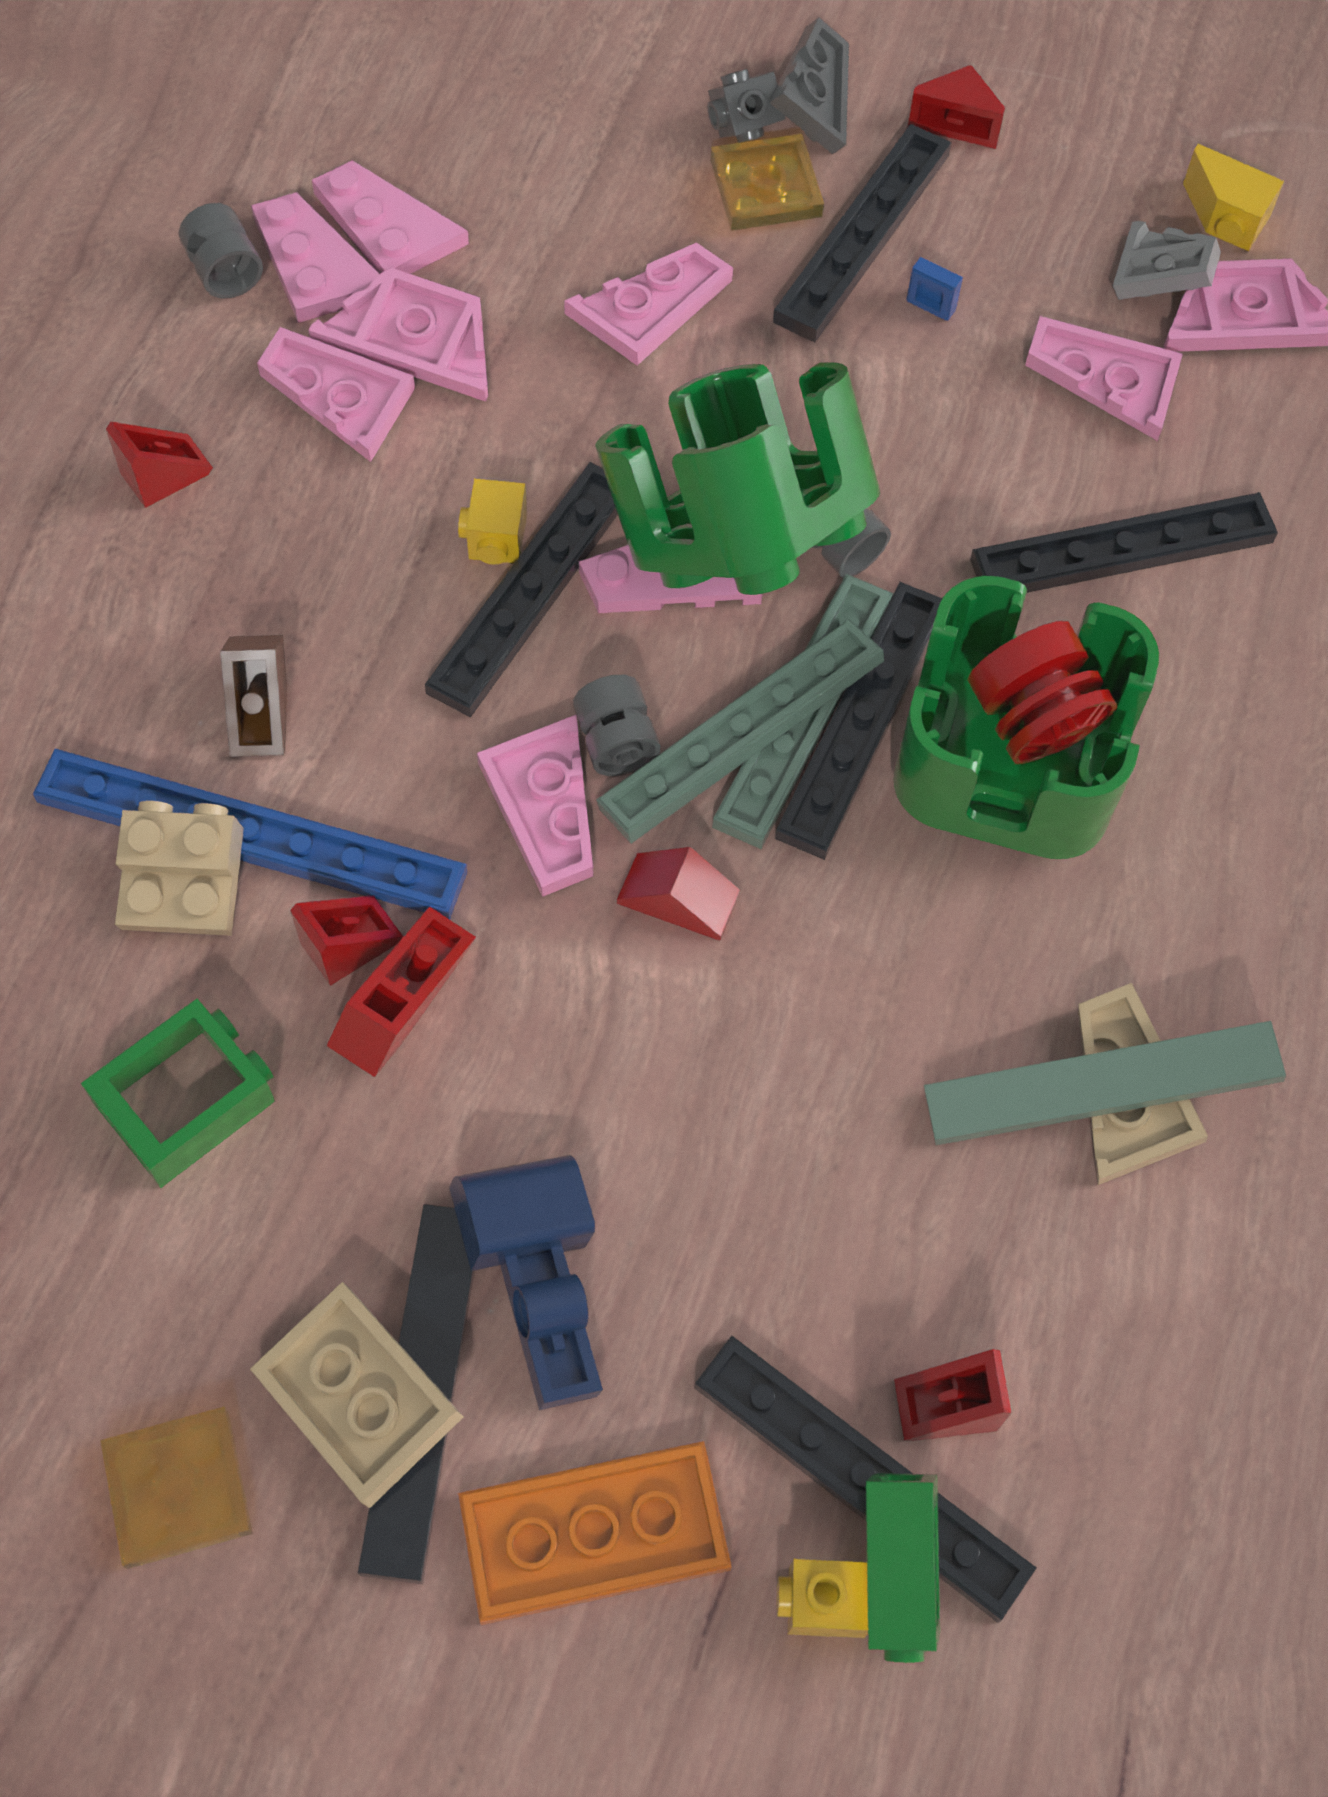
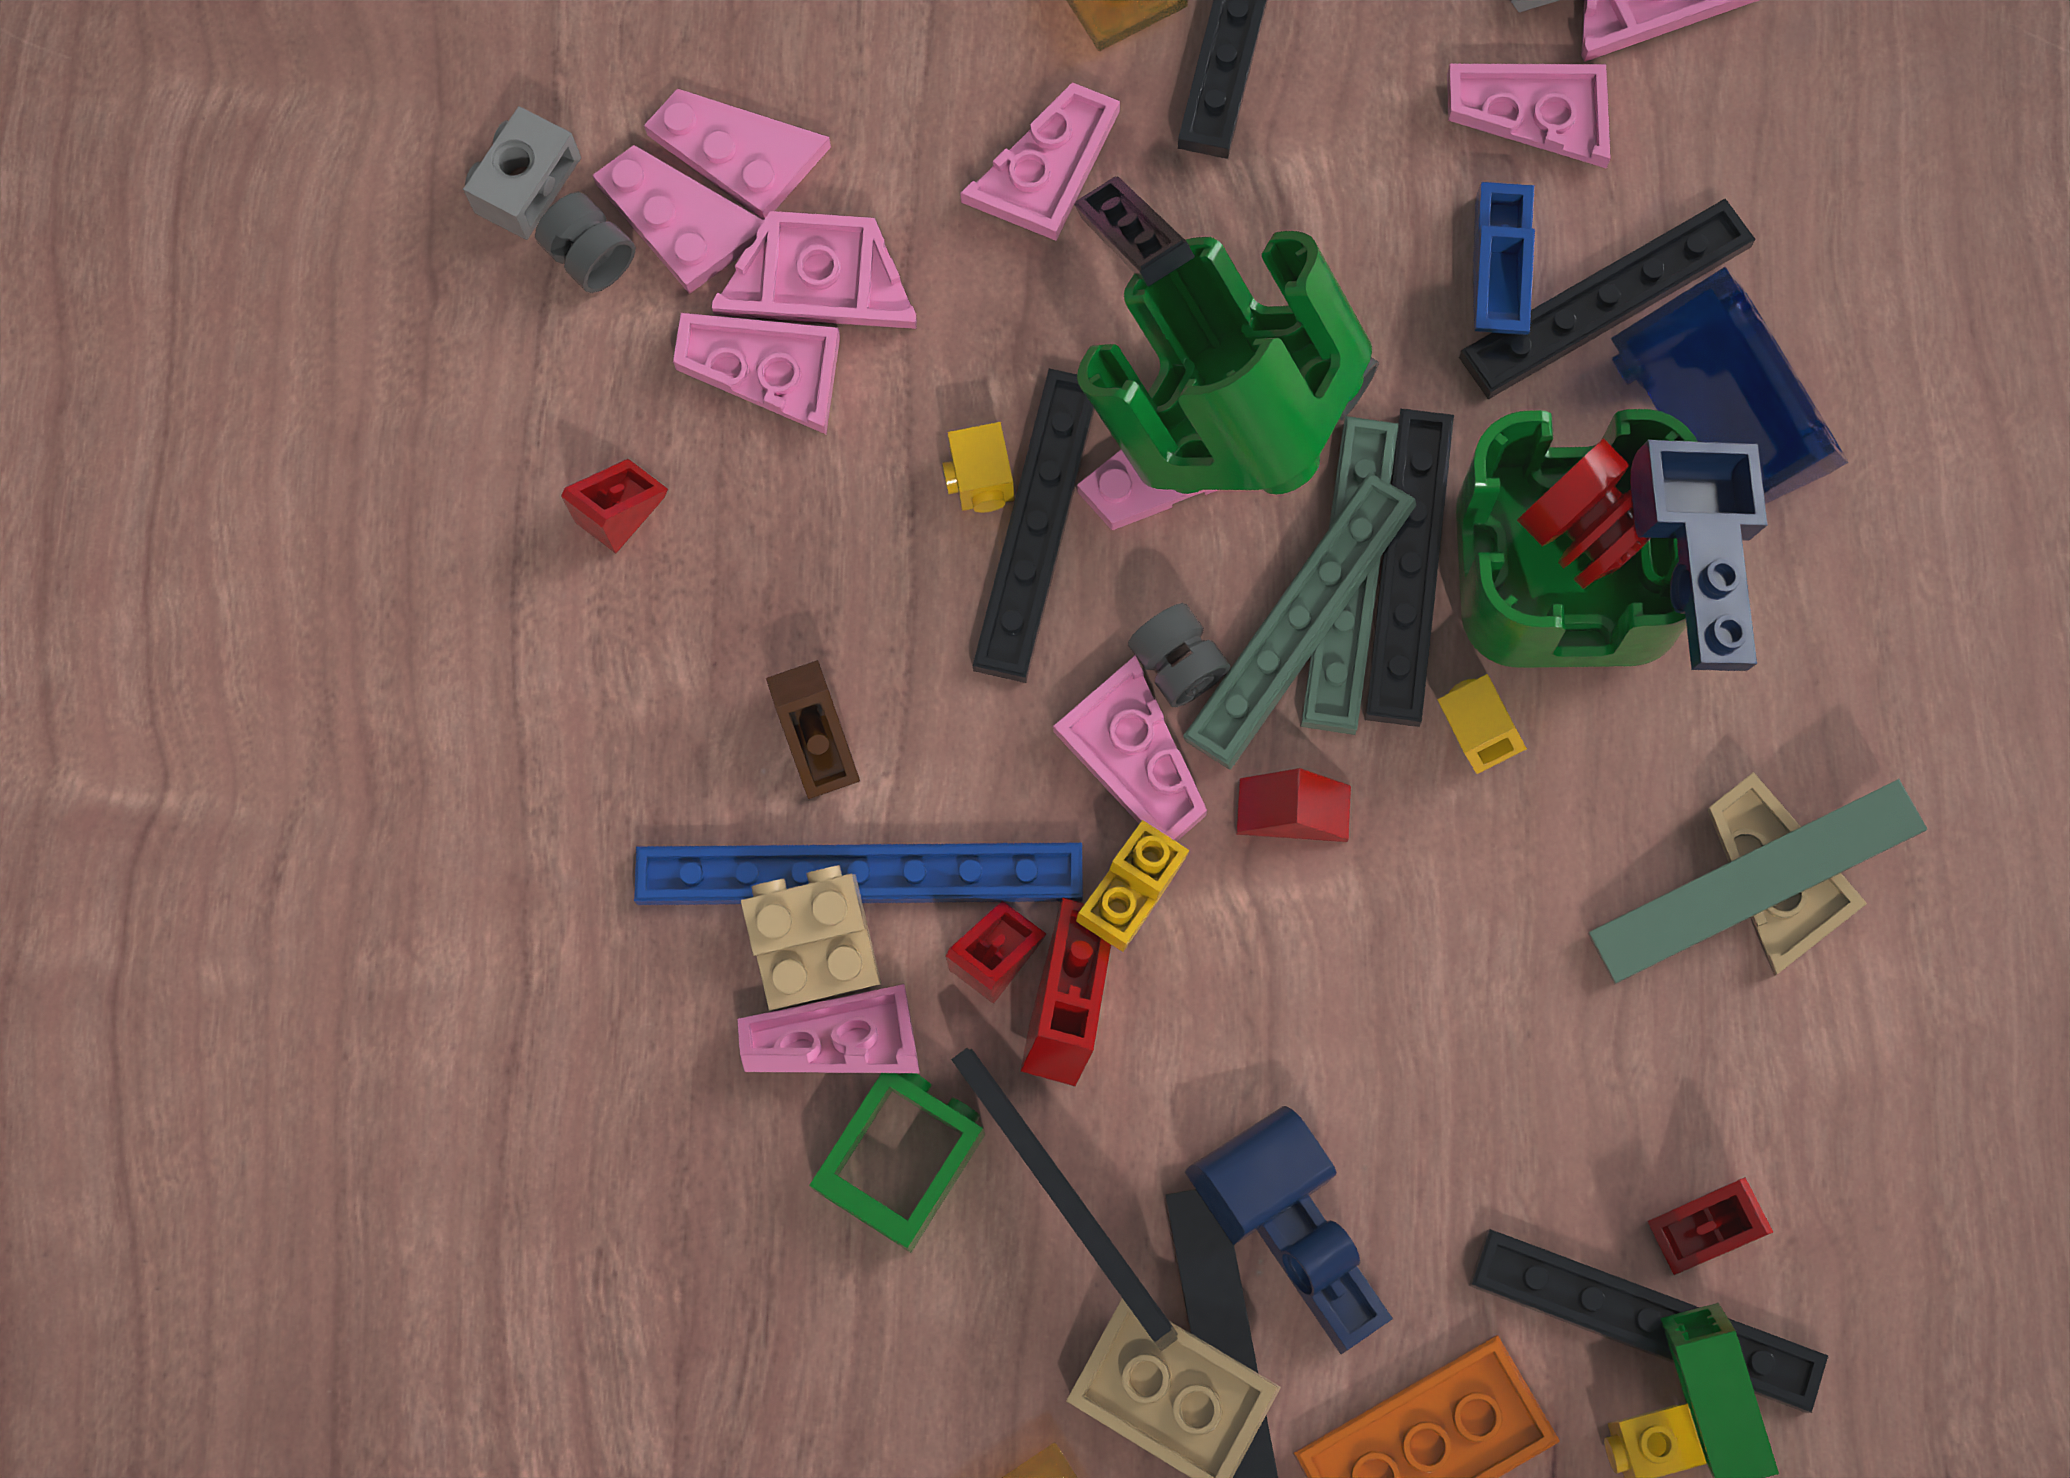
camera: 10 degrees left, 10 degrees up
(166, 962) = (833, 1036): none -> bright pink wing
(189, 178) = (524, 198): none -> light grey brick
(321, 1176) = (1066, 1199): none -> black tile
(498, 913) = (1132, 885): none -> yellow slope
(701, 356) = (1133, 230): none -> black tile
(876, 853) = (1481, 723): none -> yellow brick
(934, 289) = (1332, 63): blue tile -> none
(1036, 481) = (1503, 258): none -> blue slope
(1149, 697) = (1710, 503): none -> plate
(1219, 659) = (1729, 381): none -> clear blue windscreen

